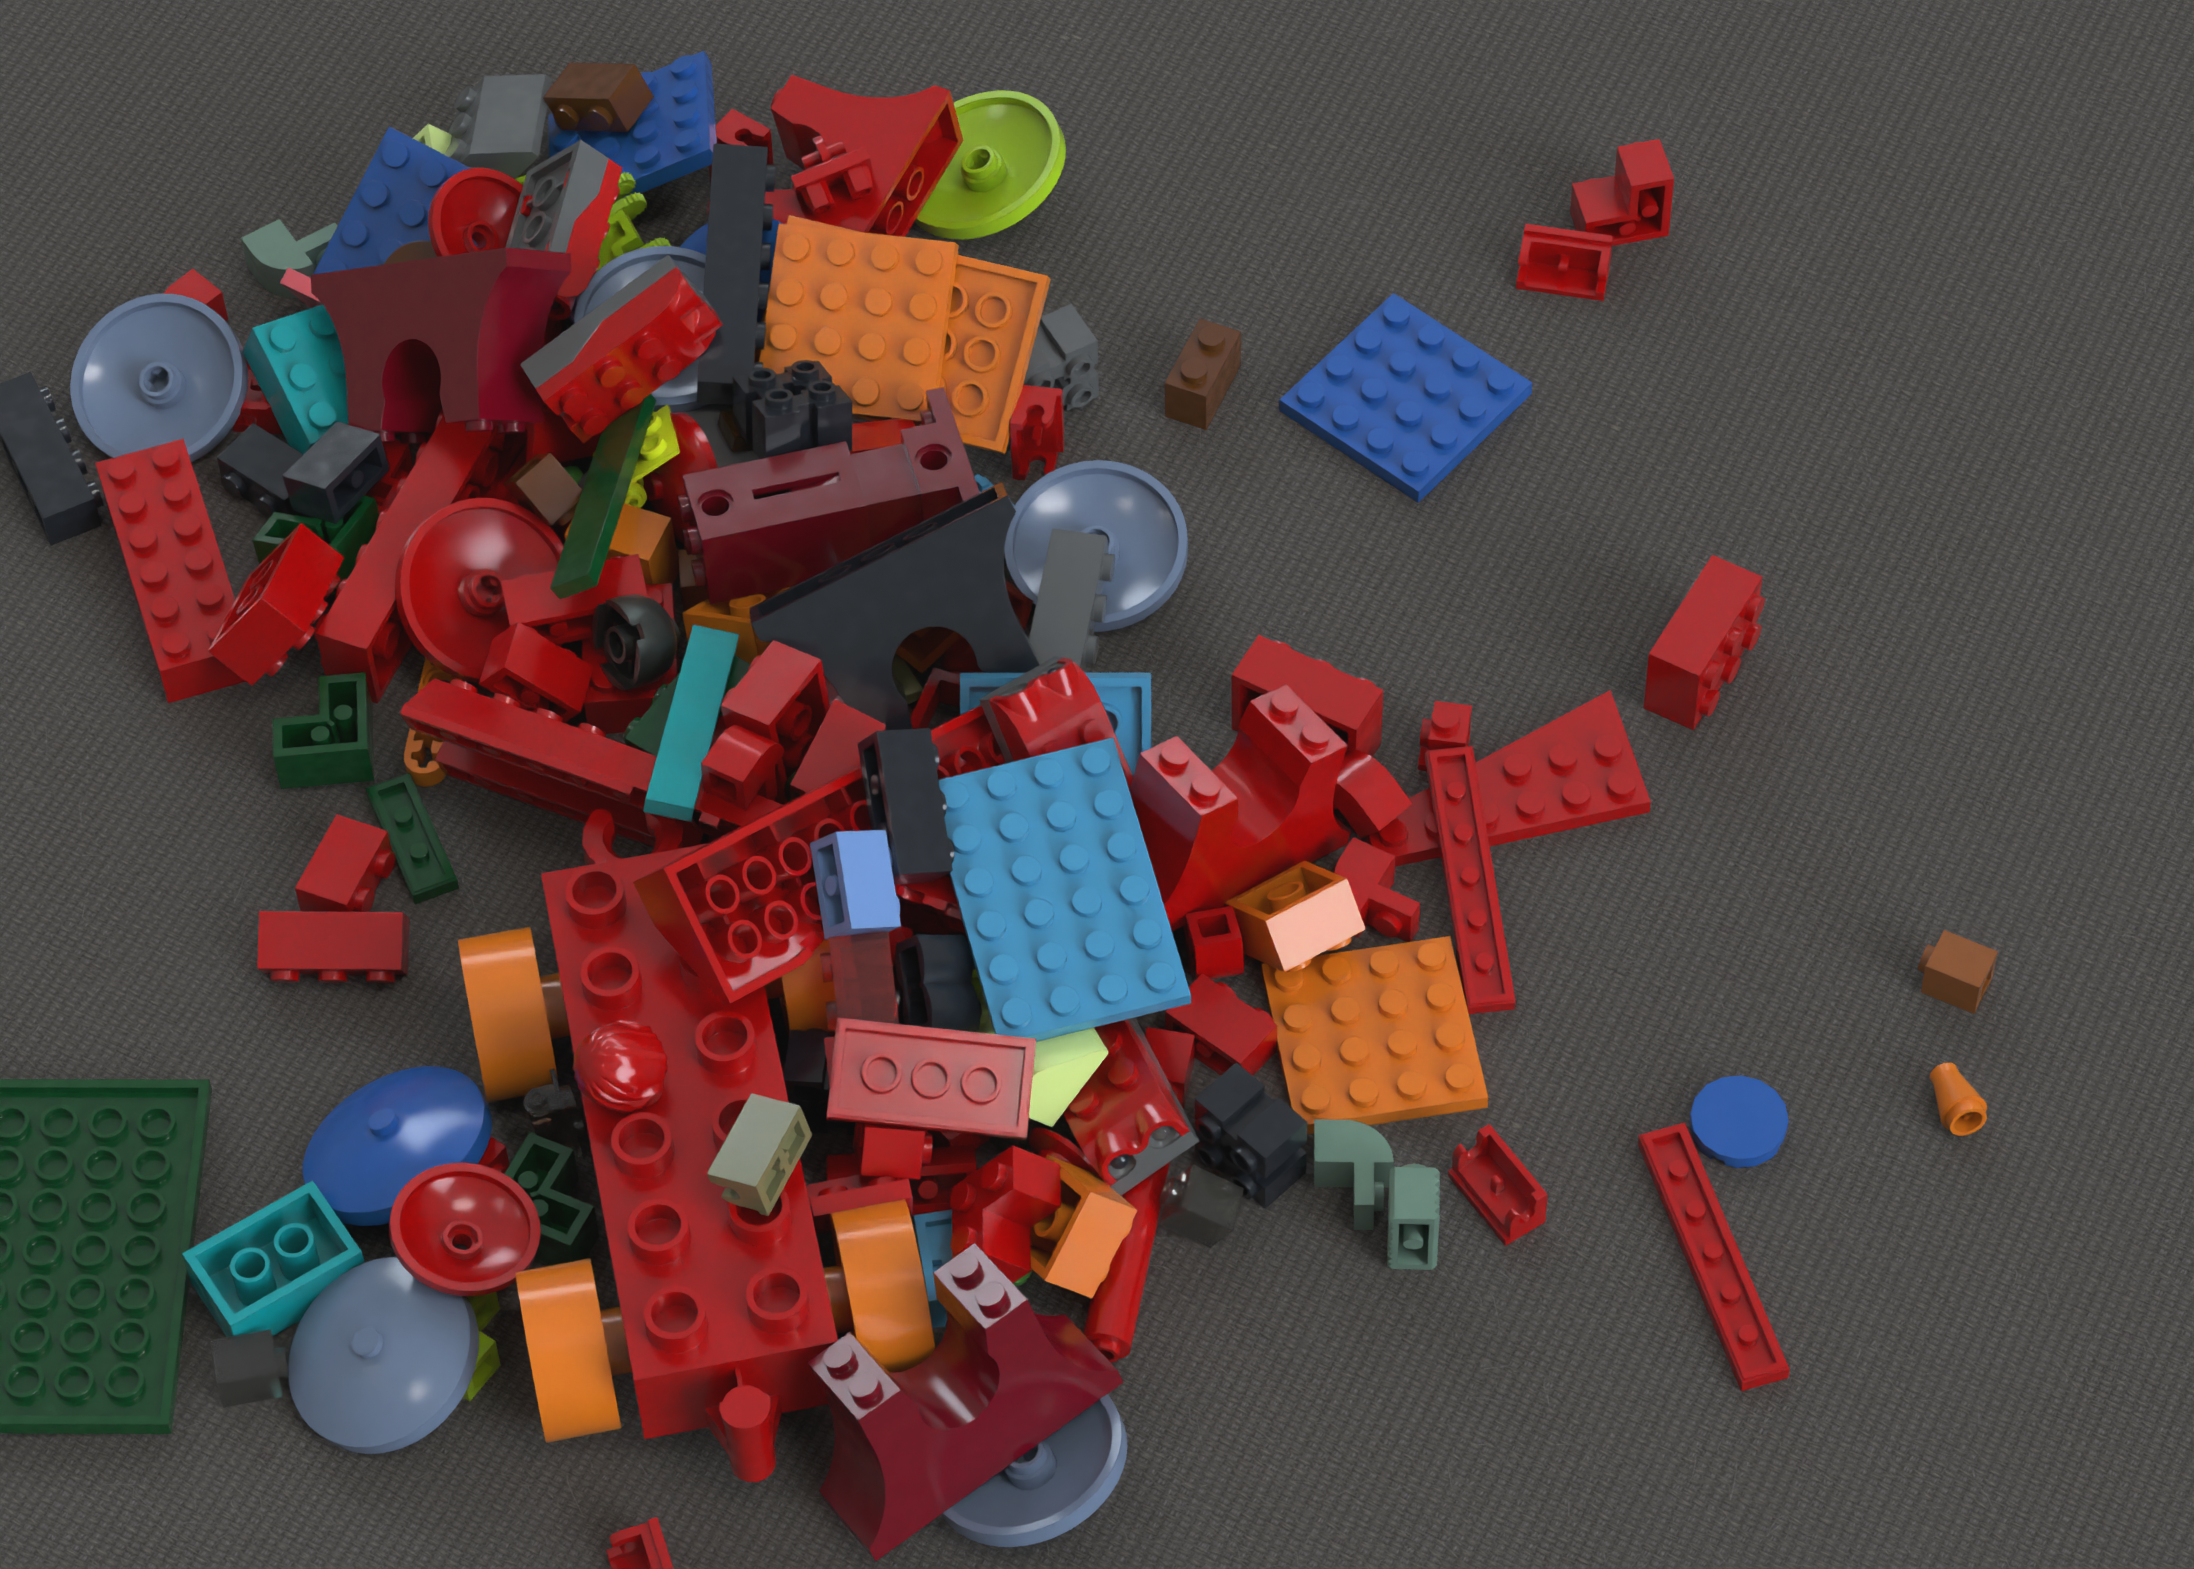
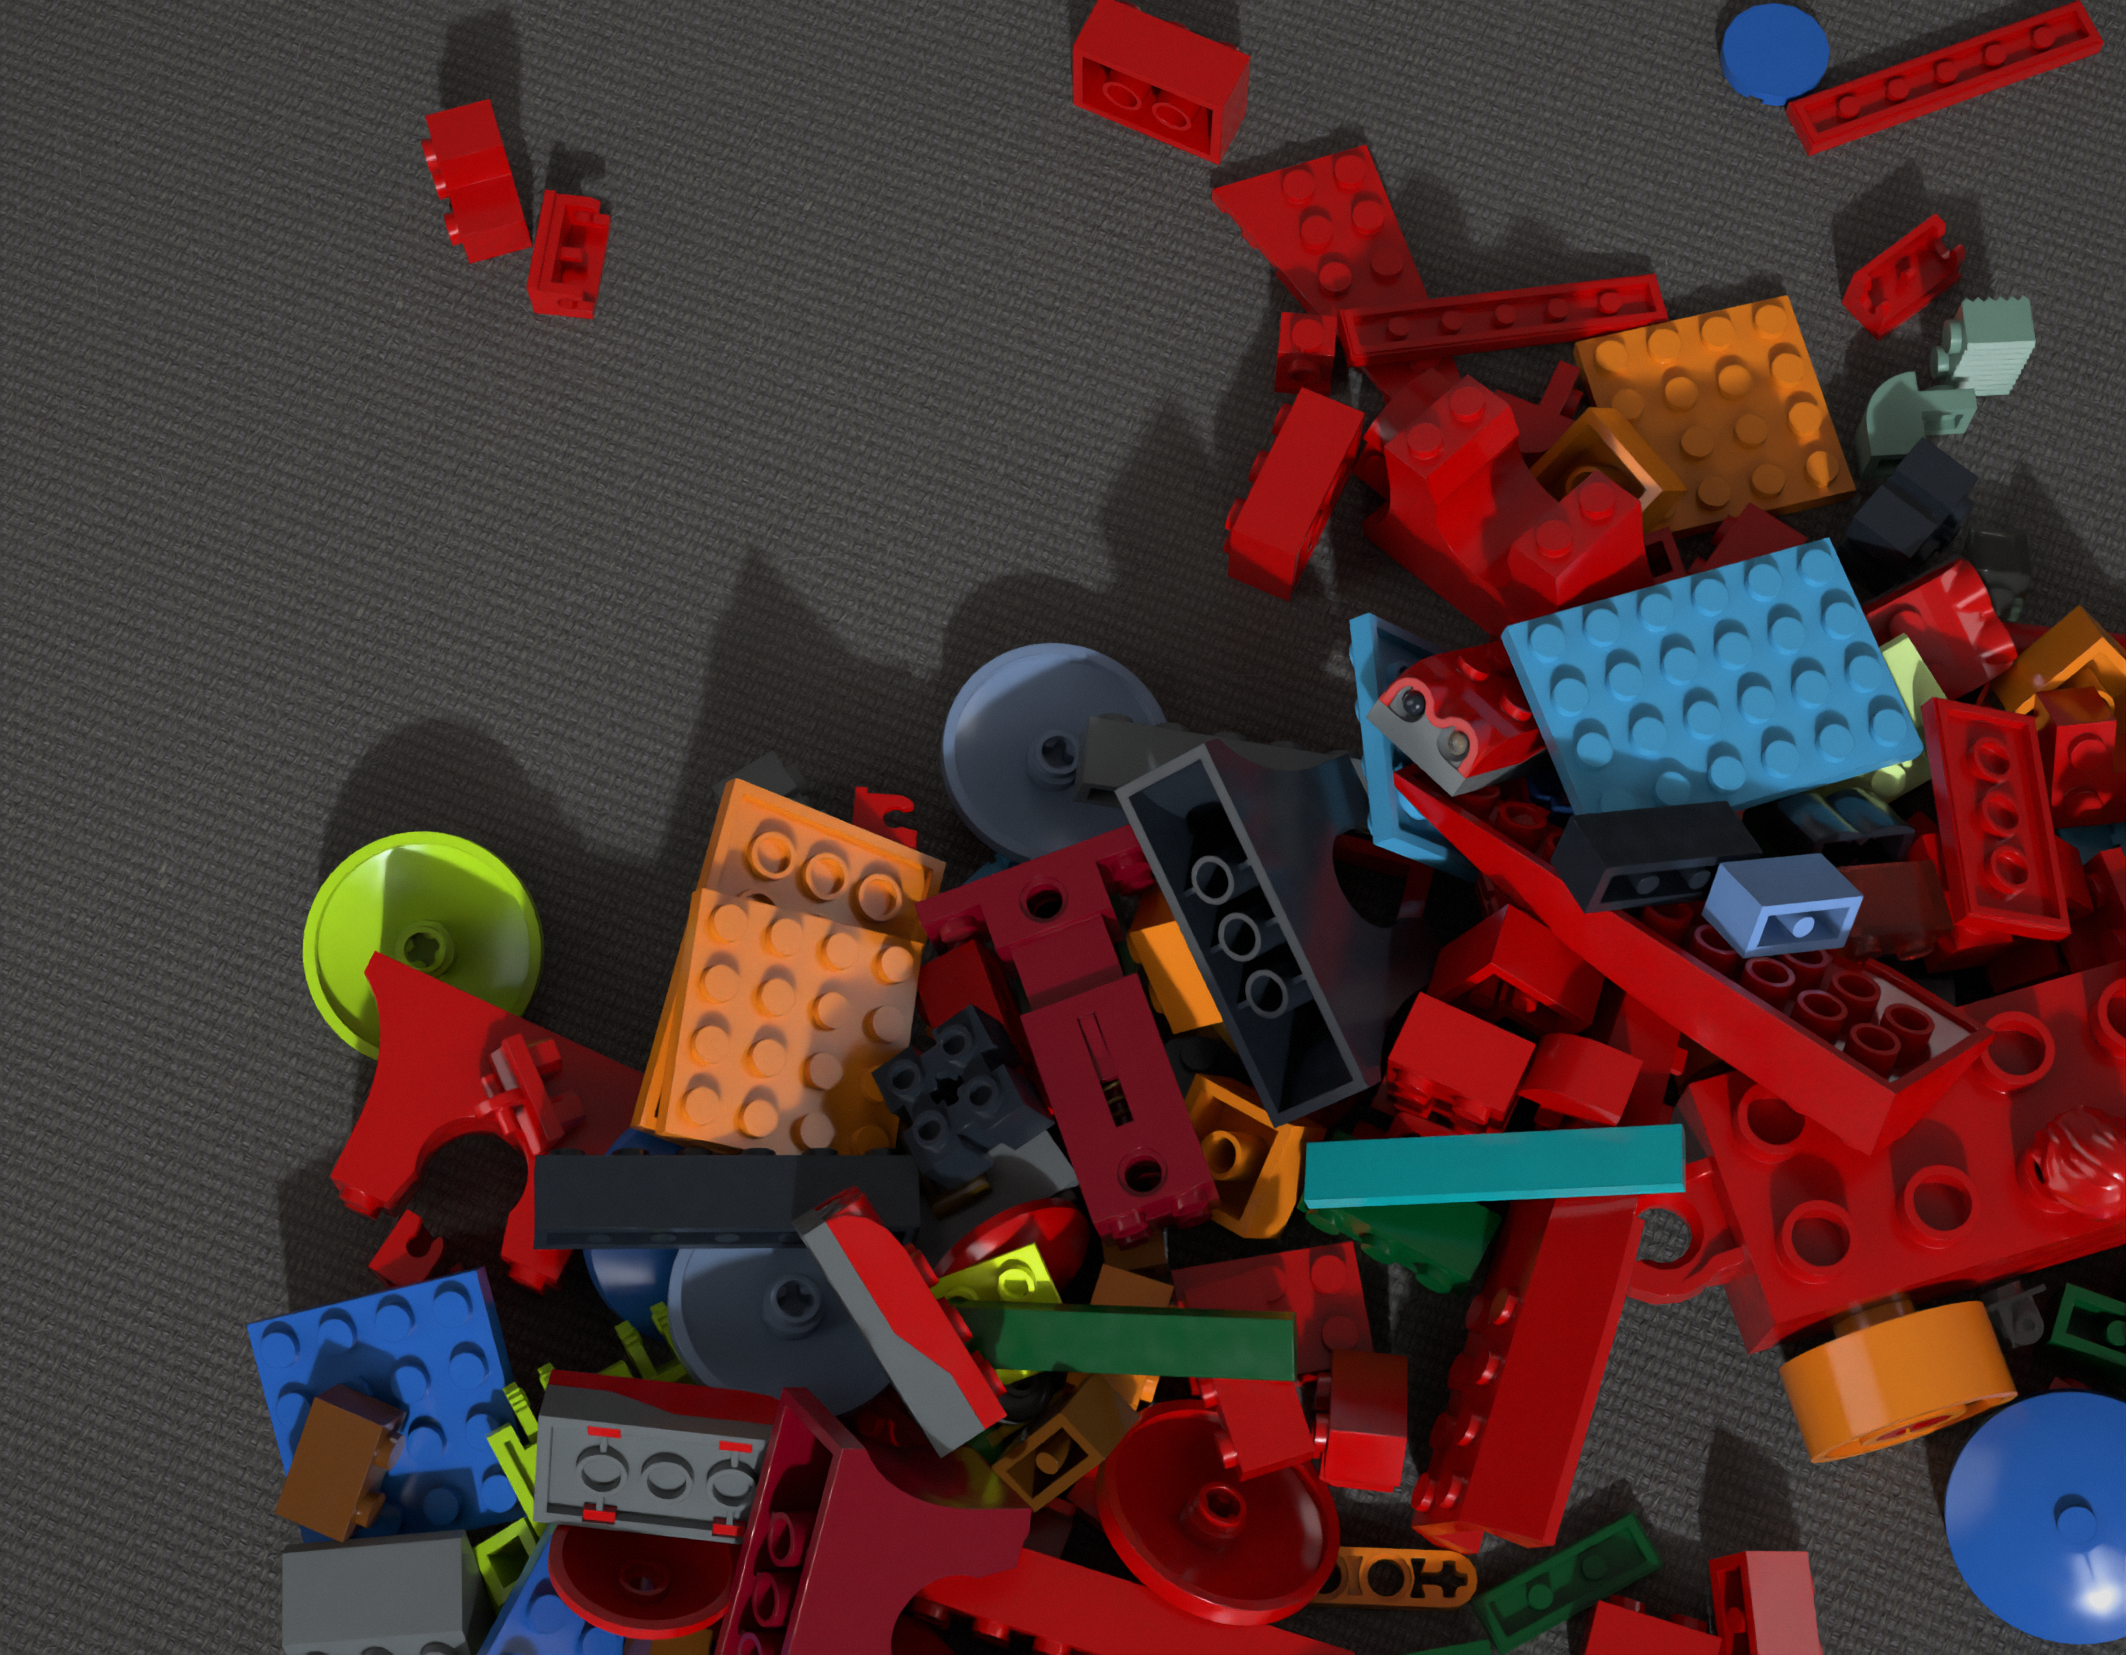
camera: 95 degrees left, 15 degrees up
(636, 640) = (1321, 1277): pearl dark grey cylinder -> none
(1202, 374) = (765, 654): reddish brown brick -> none
(1405, 397) = (776, 430): blue plate -> none

